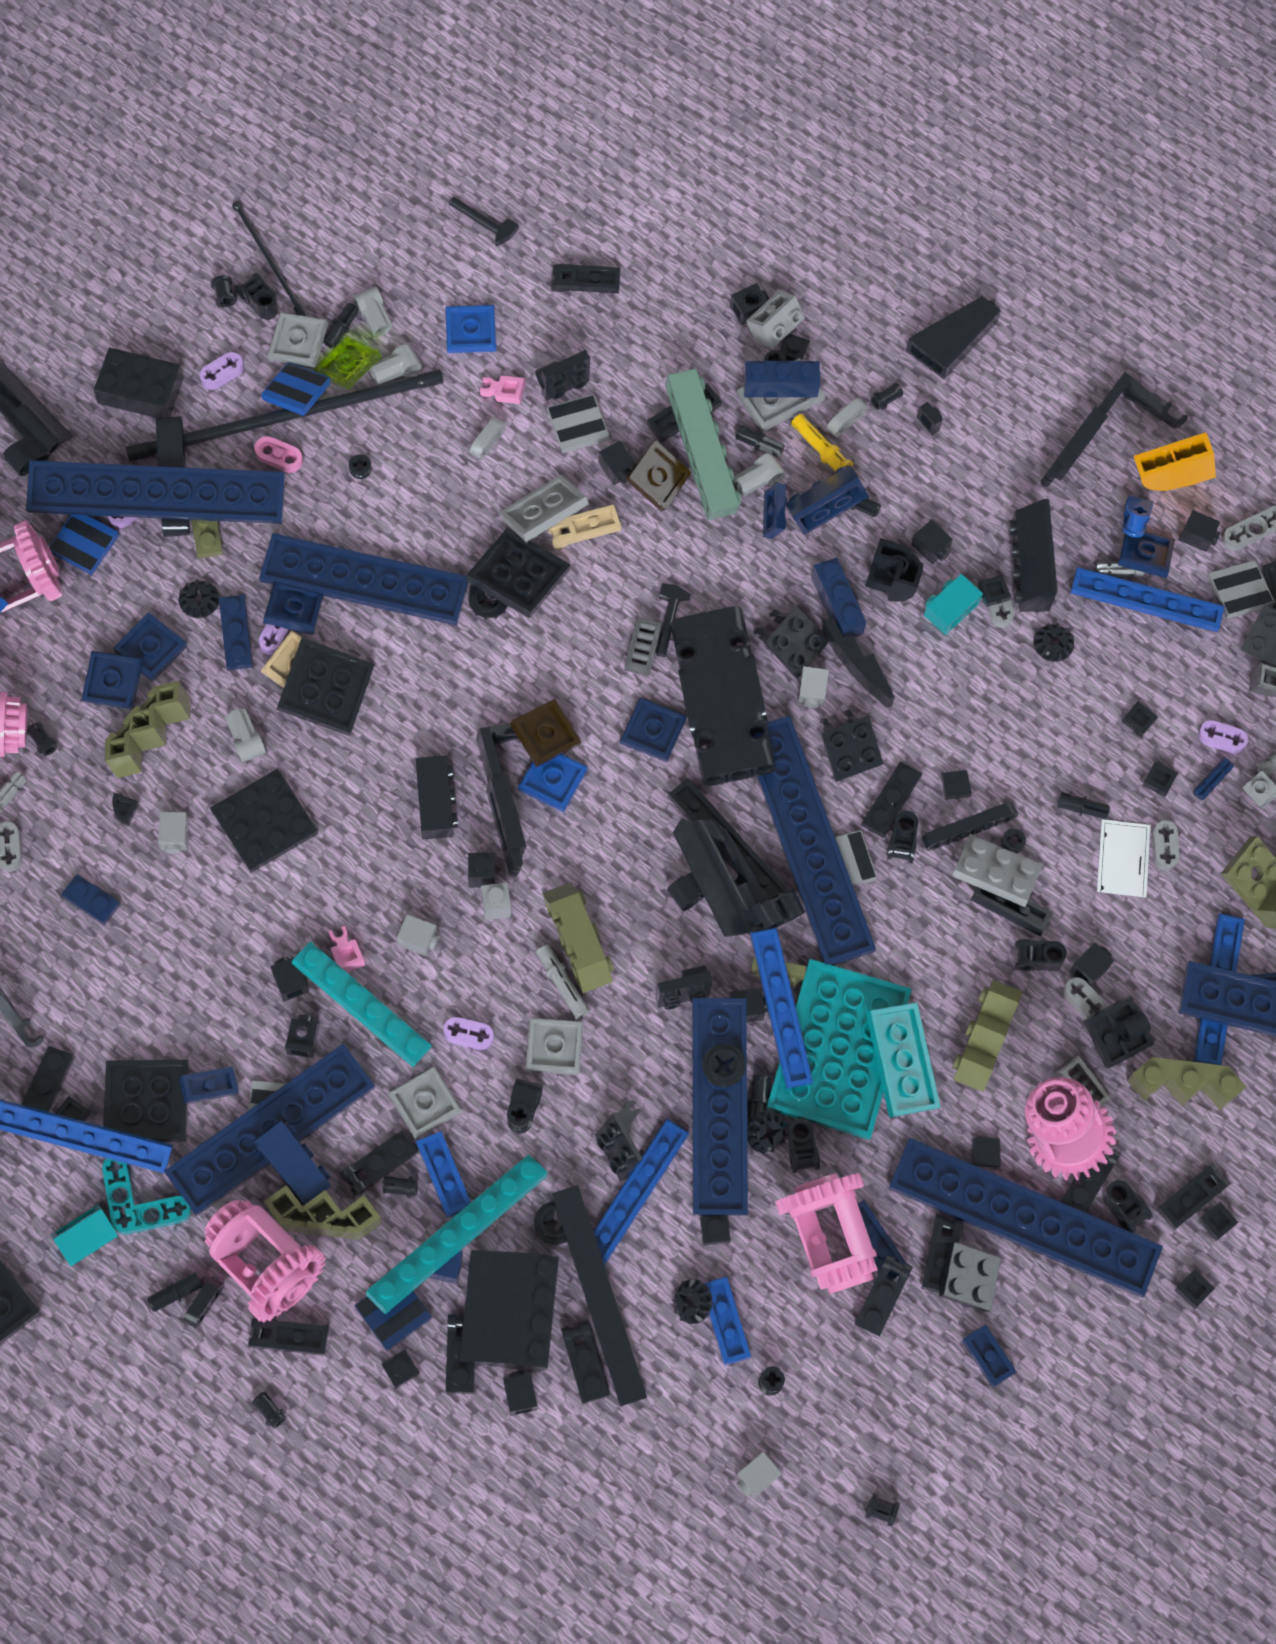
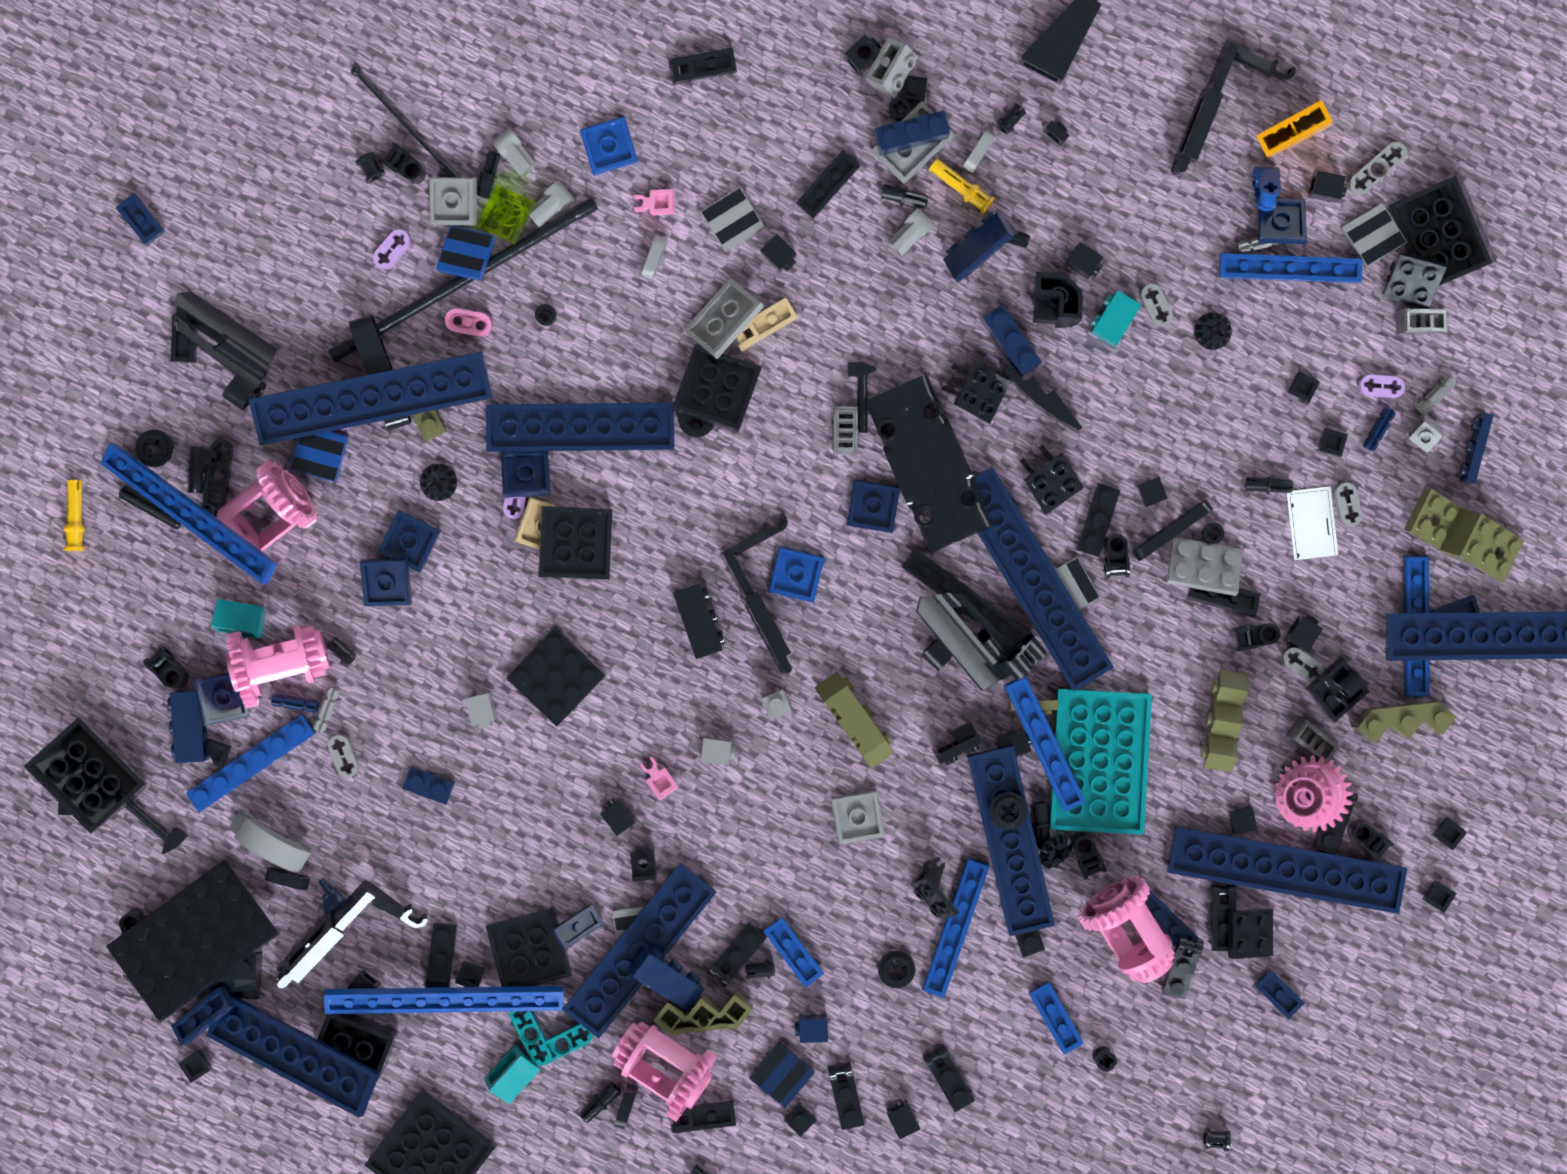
camera: 10 degrees left, 20 degrees up
(124, 808) = (432, 695): black tile -> none
(138, 383) = (321, 285): black brick -> none
(146, 728) = (429, 622): olive brick -> none
(235, 632) = (480, 506): dark blue plate -> none
(246, 740) = (519, 608): light grey piece -> none
(361, 1004) = (686, 825): teal plate -> none
(424, 1102) = (761, 893): light grey tile -> none
(456, 1234) = (819, 1005): teal plate -> none
(470, 1027) = (782, 830): lavender beam -> none
(481, 869) = (756, 679): black brick -> none
(503, 232) = (612, 34): black piece -> none
(509, 1310) = (877, 1055): black slope -> none
(524, 1101) = (844, 873): black piece -> none
(545, 733) = (780, 539): dark brown plate -> none
(557, 973) = (831, 740): light grey pin -> none
(563, 376) = (701, 184): black plate -> none
(599, 1296) = (947, 1022): black tile -> none
(658, 475) = (820, 258): plate -> none
(702, 444) = (852, 217): sand green brick -> none
(702, 1299) = (1033, 1008): black gear -> none
(757, 1476) = (1110, 1137): light grey brick -> none
(774, 510) = (933, 265): dark blue plate -> none
(813, 686) = (1006, 432): light grey brick -> none
(903, 1060) = (1158, 762): teal plate -> none
(994, 590) = (1150, 297): black tile -> none
(1033, 557) = (1180, 255): black slope -> none
(1192, 1197) = (1425, 817): black plate -> none

